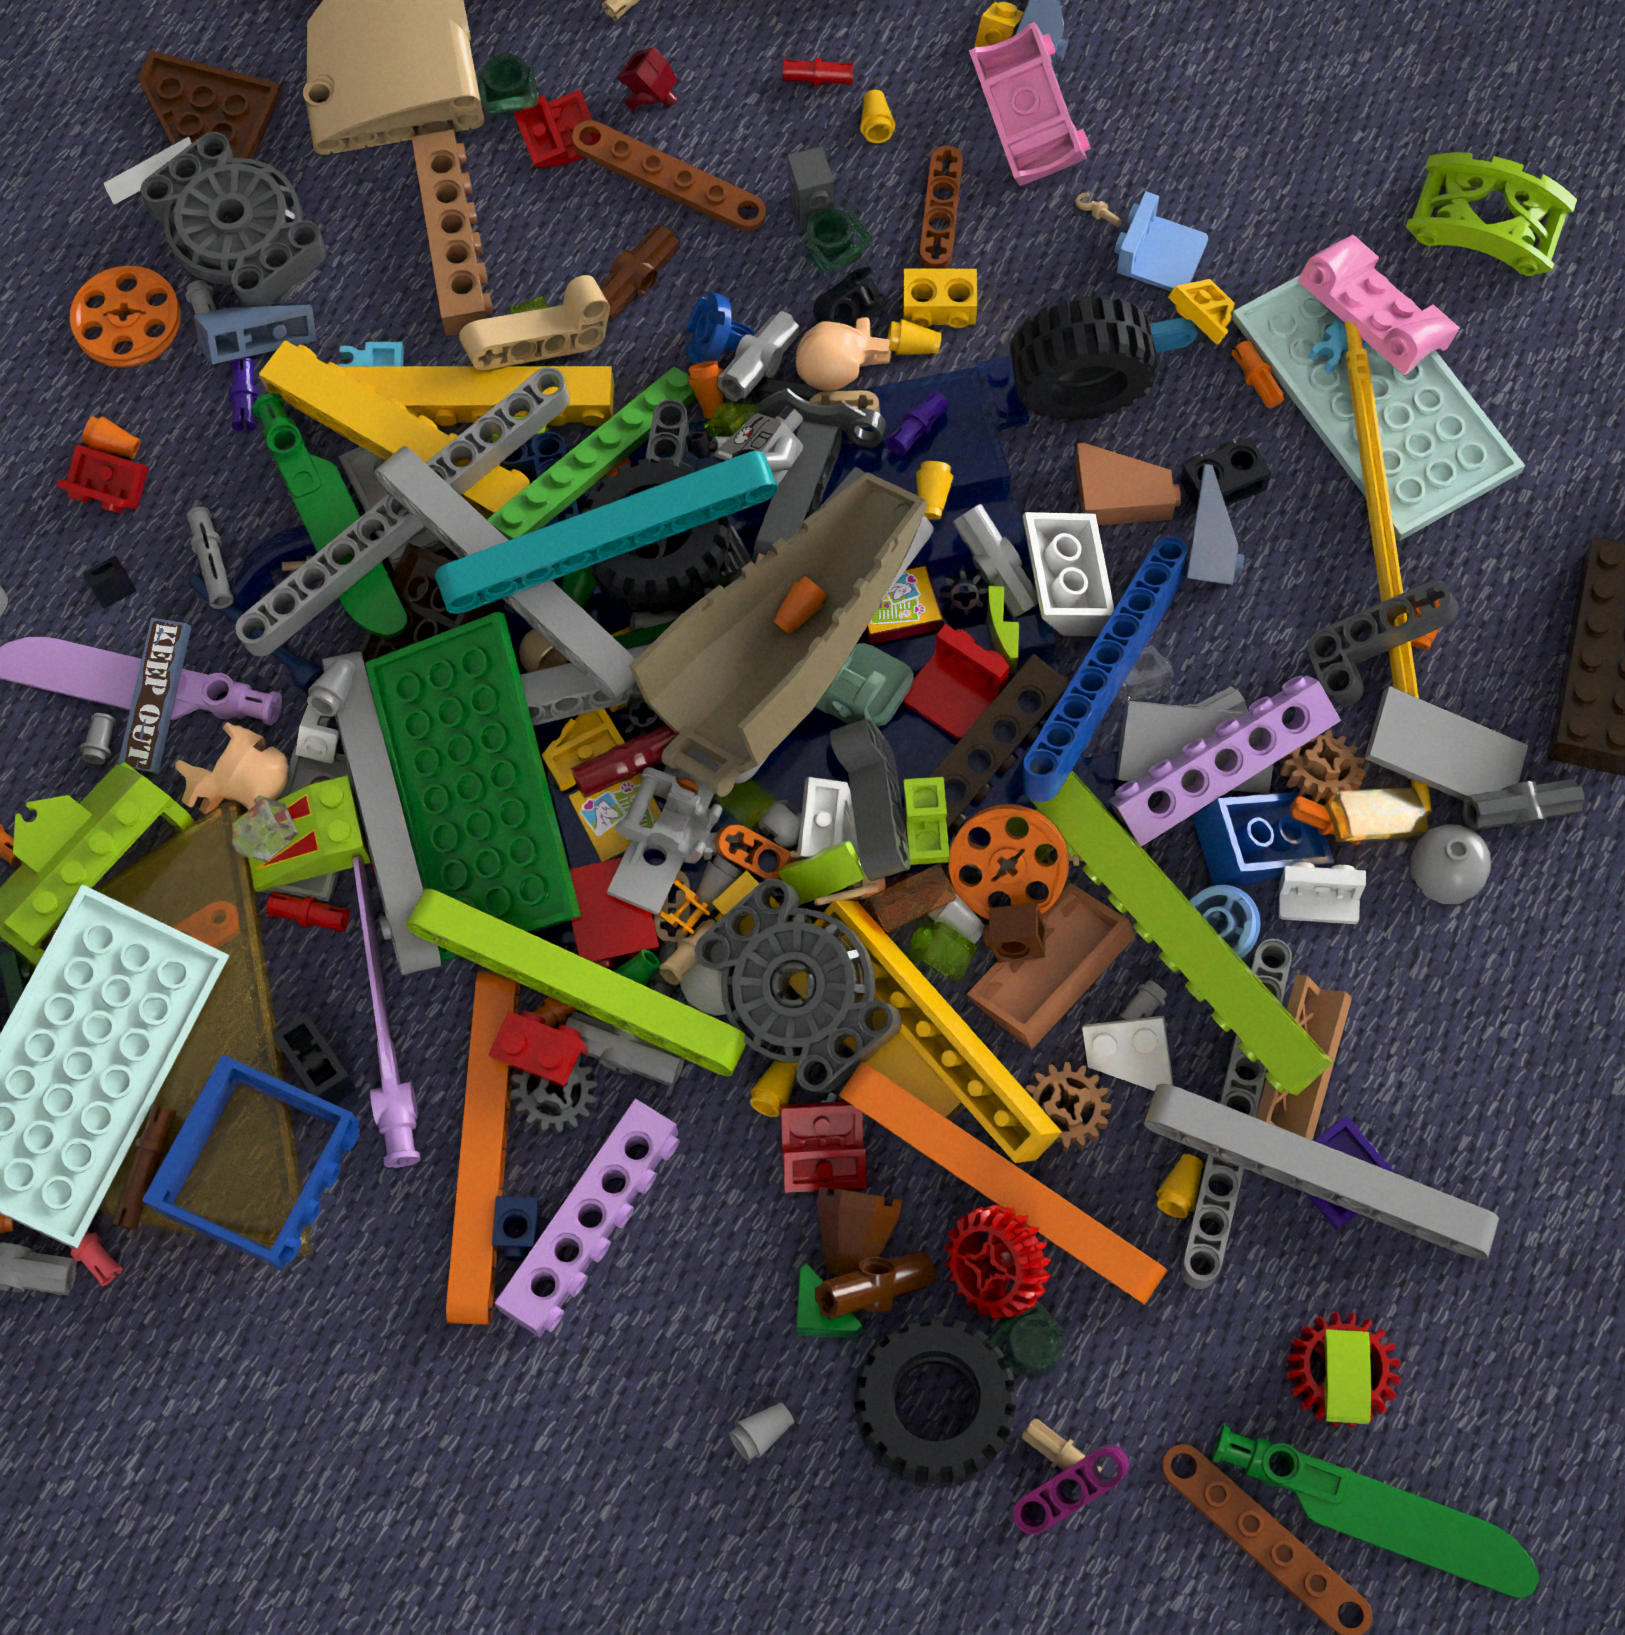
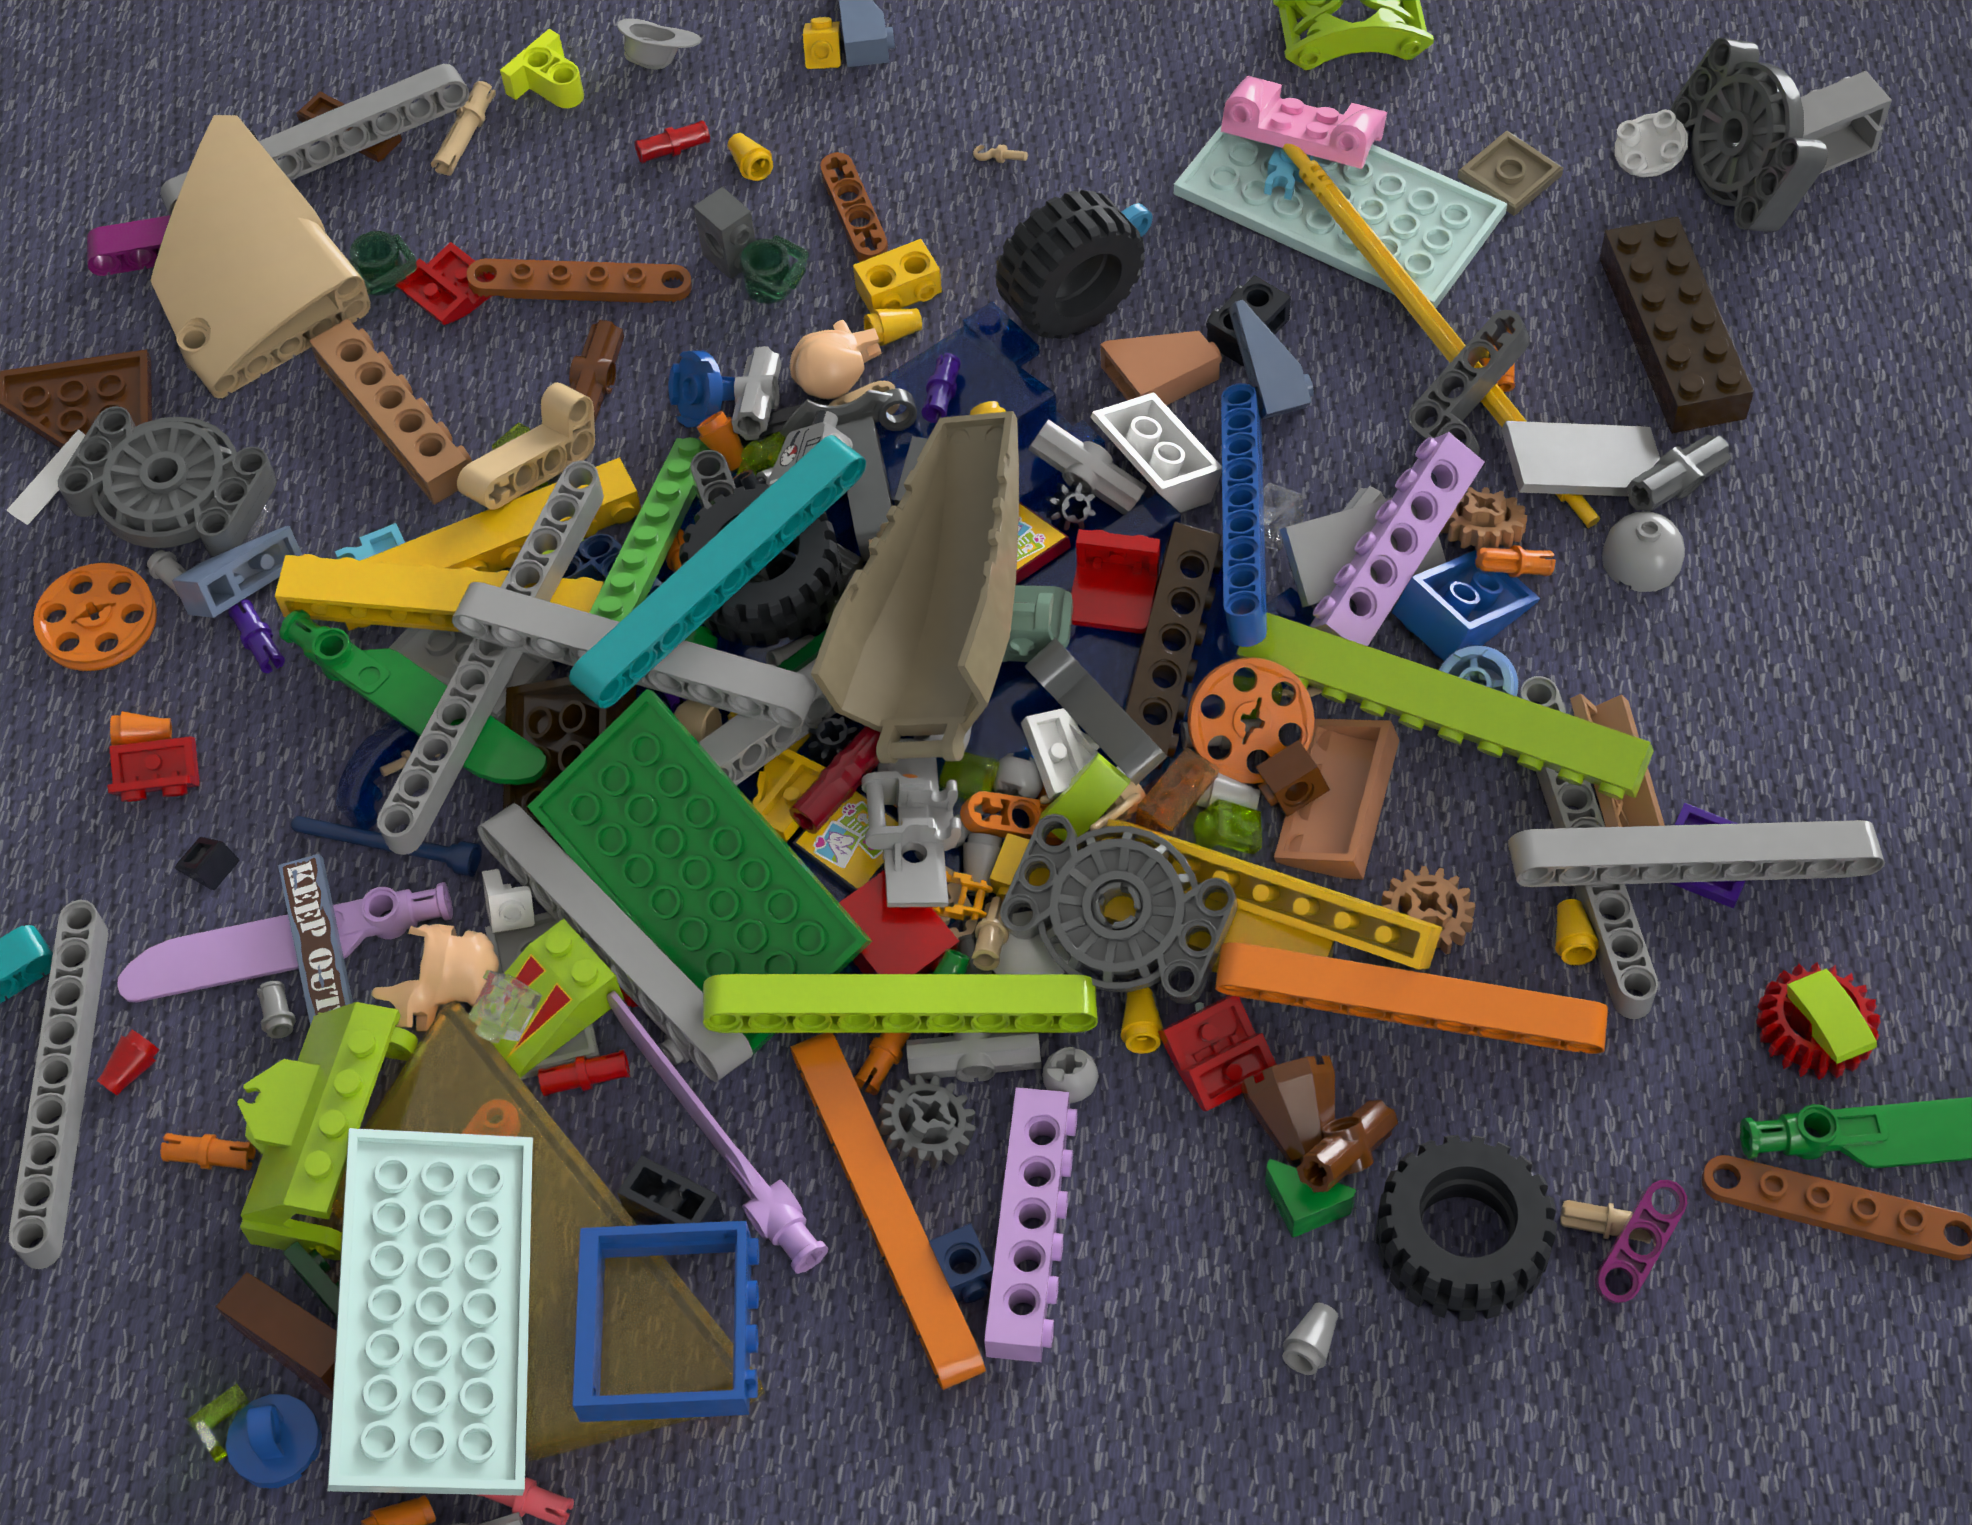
camera: 25 degrees left, 10 degrees down
(144, 1166) = (550, 1363): reddish brown pin -> none
(219, 588) = (294, 784): light grey pin -> none
(332, 688) = (508, 842): light grey cone -> none
(537, 1048) = (895, 1081): red bracket -> none
(649, 79) = (516, 204): dark red piece -> none
(689, 1106) = (1071, 1072): none -> light grey piece
(799, 605) = (936, 563): orange cone -> none
(854, 295) = (814, 312): black piece -> none
(926, 820) = (1152, 708): lime slope -> none
(1003, 634) = (1121, 518): lime slope -> none
(1006, 1255) = (1454, 1105): red gear -> none
(1029, 105) = (891, 88): bright pink piece -> none
(1034, 1342) = (1525, 1125): clear green piece -> none
(1130, 1050) = (1457, 835): white wing -> none
(1145, 1002) = (1444, 783): light grey pin -> none
(1158, 248) = (1075, 161): light blue bracket -> none
(1205, 306) = (1142, 186): yellow wing -> none
(1258, 374) = (1226, 227): orange axle -> none
(1321, 893) = (1546, 624): white bracket -> none
(1377, 814) = (1557, 536): clear yellow piece -> none
(1550, 433) = (1510, 172): none -> dark tan tile

